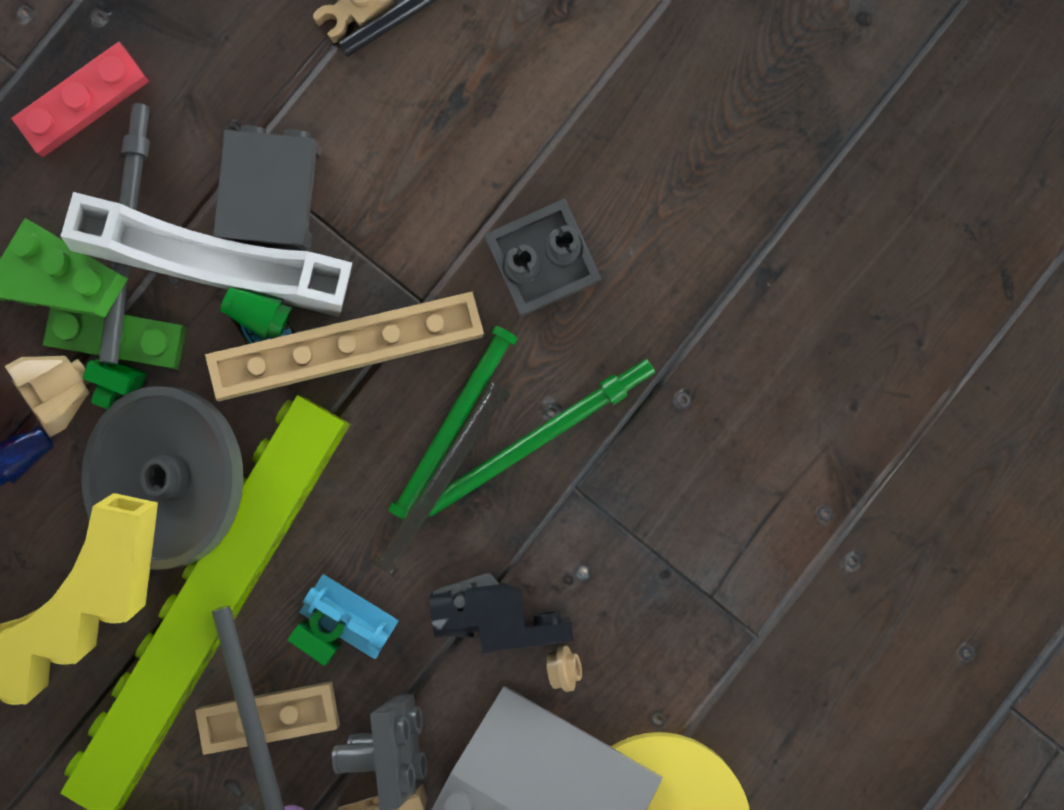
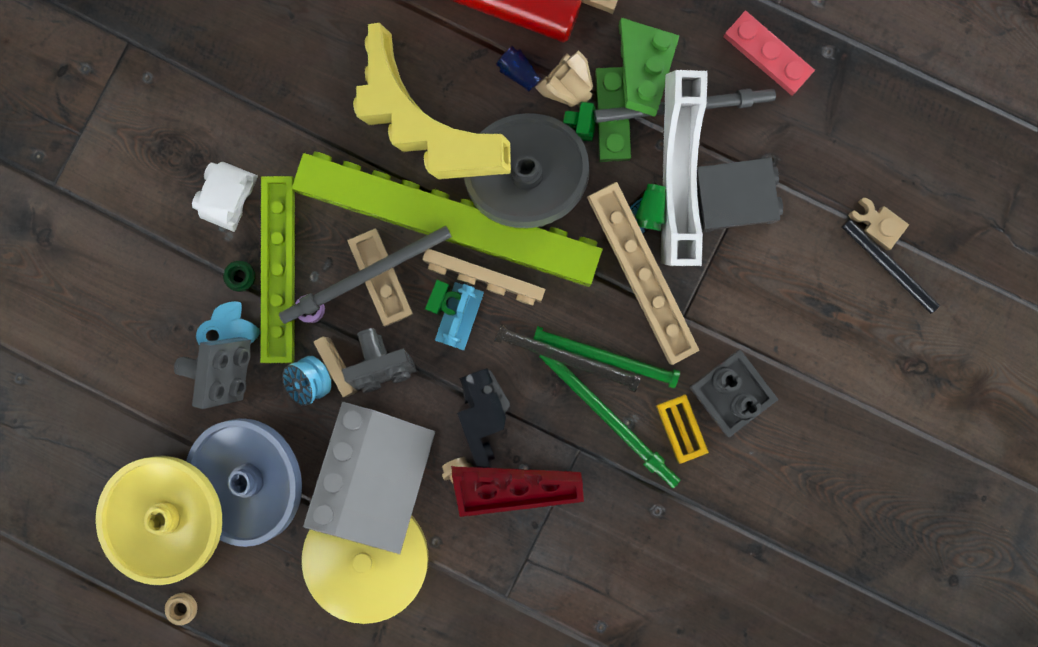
camera: 75 degrees right, 0 degrees up
(291, 587) = (470, 273): none -> tan plate
(539, 346) = (670, 432): none -> yellow tile
(605, 608) = (504, 490): none -> dark red wing

